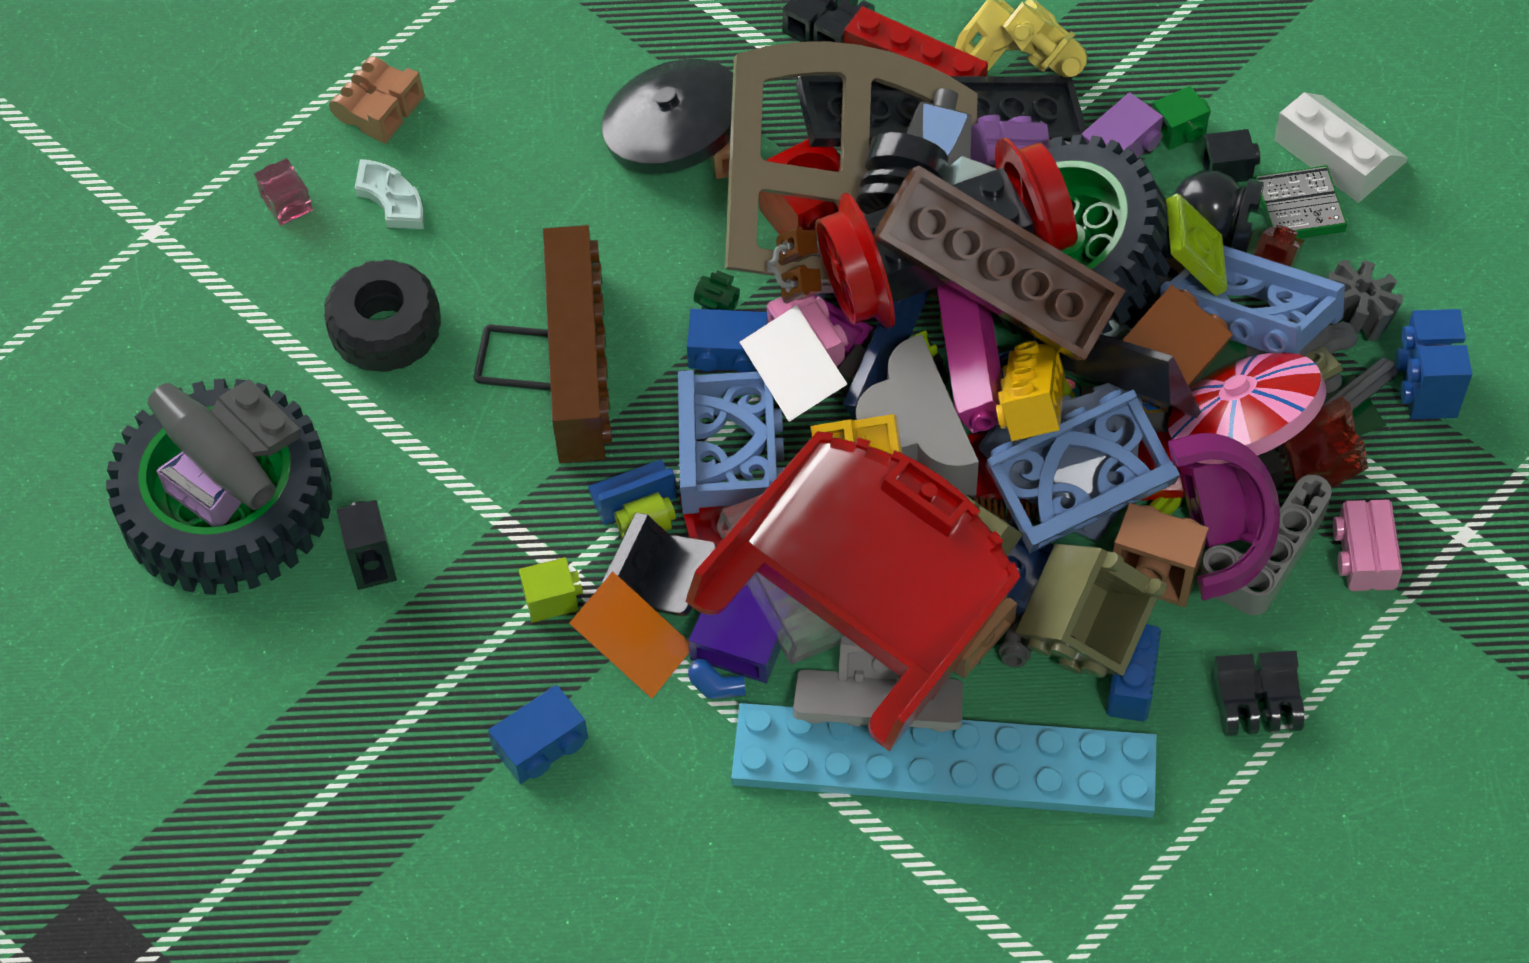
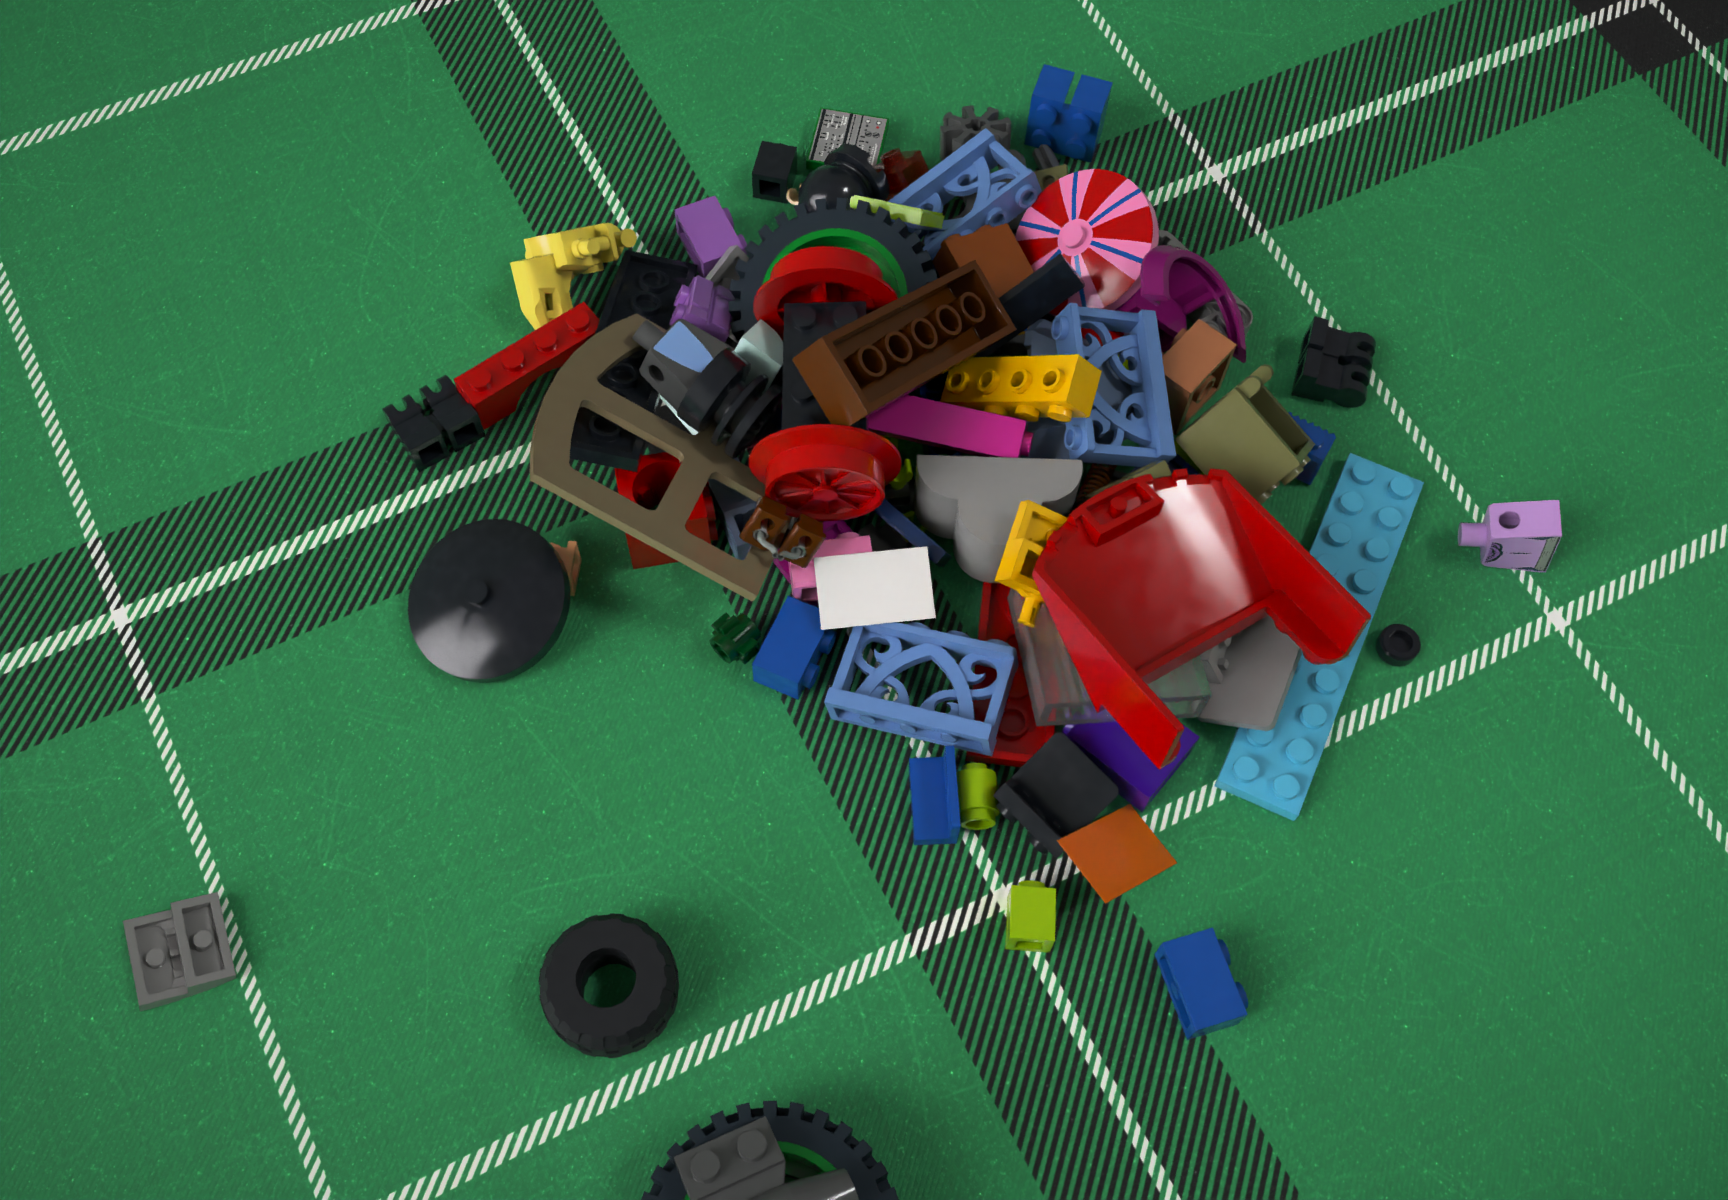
camera: 75 degrees left, 5 degrees up
(283, 191) = (368, 1051): clear pink brick -> none
(318, 53) = (179, 951): none -> light grey slope
(366, 544) = (919, 1090): black brick -> none
(378, 98) = (308, 902): nougat legs -> none
(392, 192) = (429, 927): light aqua tile -> none
(501, 381) = (724, 911): black piece -> none
(576, 344) = (744, 788): reddish brown brick -> none
(712, 684) = (1184, 799): blue arm -> none
(955, 831) = (1398, 645): none -> black tile
(1120, 901) = (1516, 535): none -> lavender torso
(1183, 117) = (713, 179): green brick -> none
(1327, 135) = (795, 95): white slope -> none
(1368, 545) = (1217, 232): bright pink brick -> none

